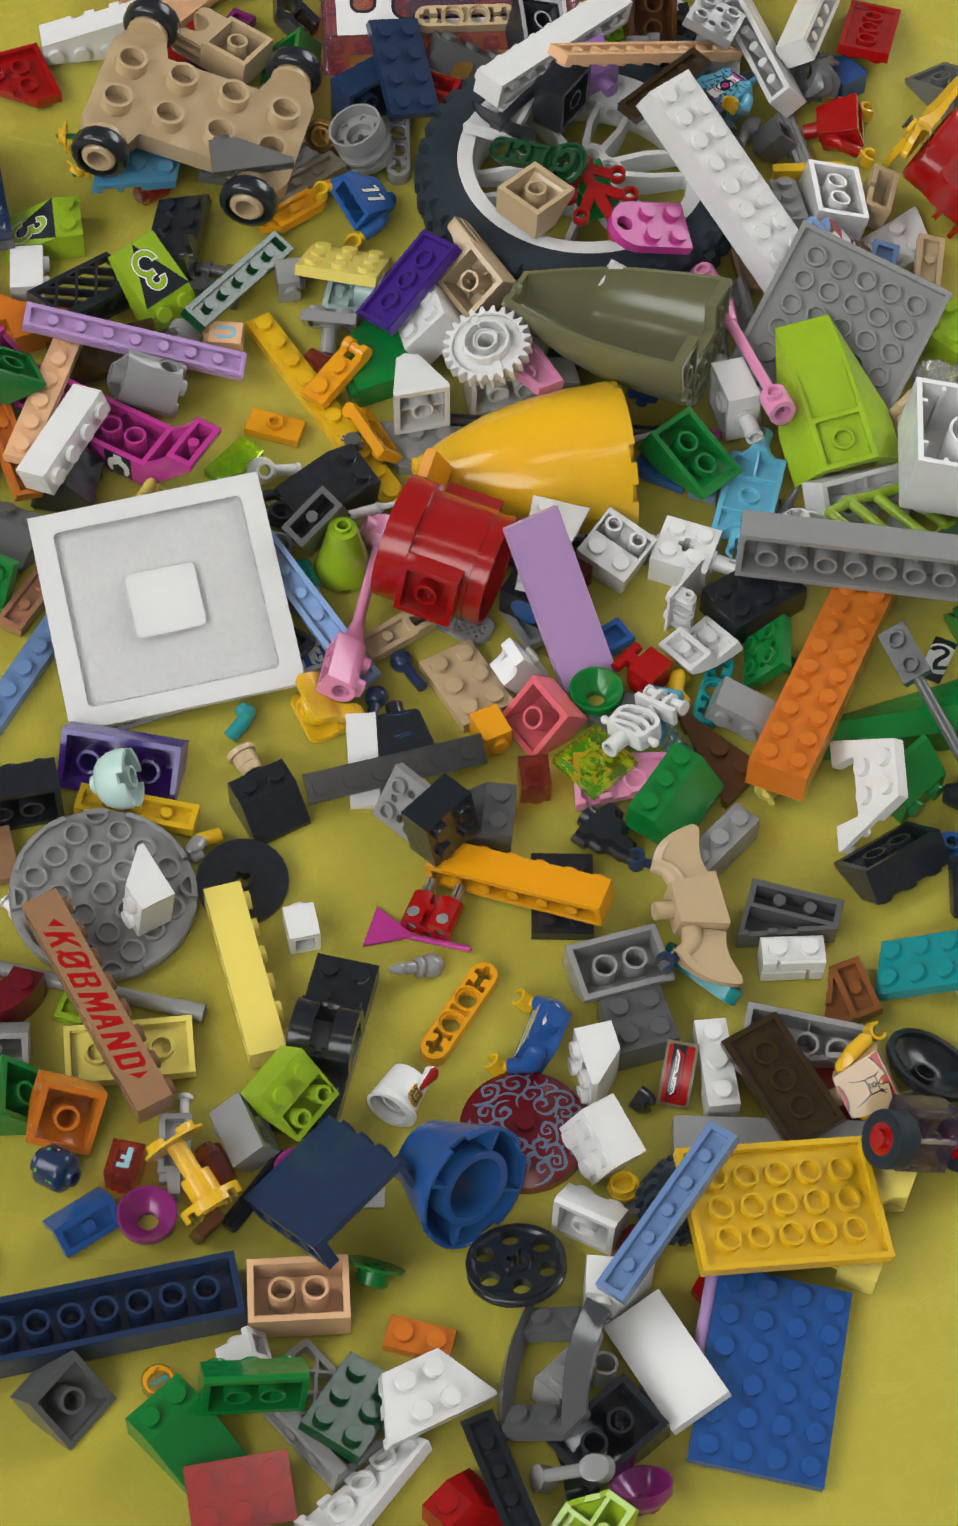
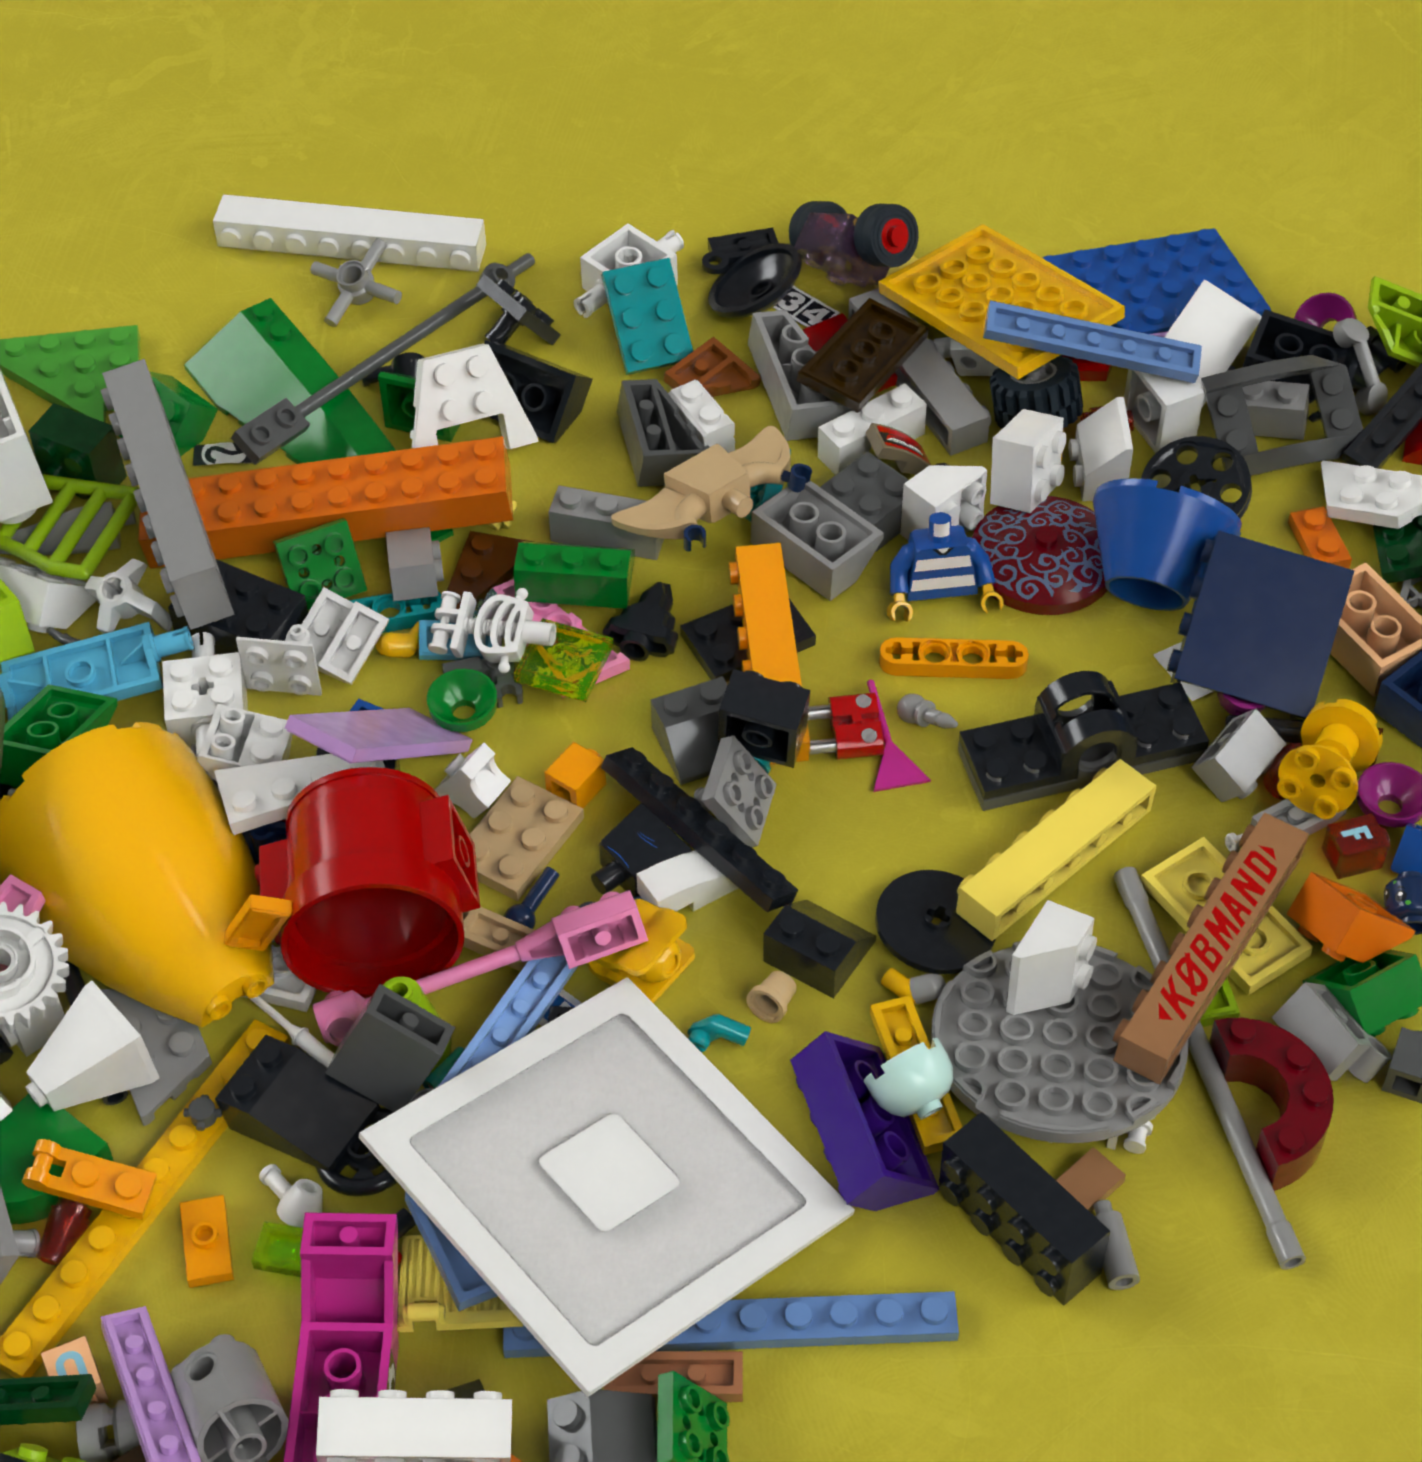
camera: 115 degrees left, 5 degrees down
(290, 1092) = (1179, 714): lime slope -> none
(301, 927) = (958, 830): white brick -> none
(372, 433) = (169, 1102): light orange plate -> none
(400, 1094) = (1091, 647): white hat -> none
(534, 778) = (617, 710): clear red brick -> none
(543, 716) = (526, 734): coral slope -> none
(645, 669) = (401, 674): red brick -> none
(863, 1076) = (814, 297): tan torso -> none

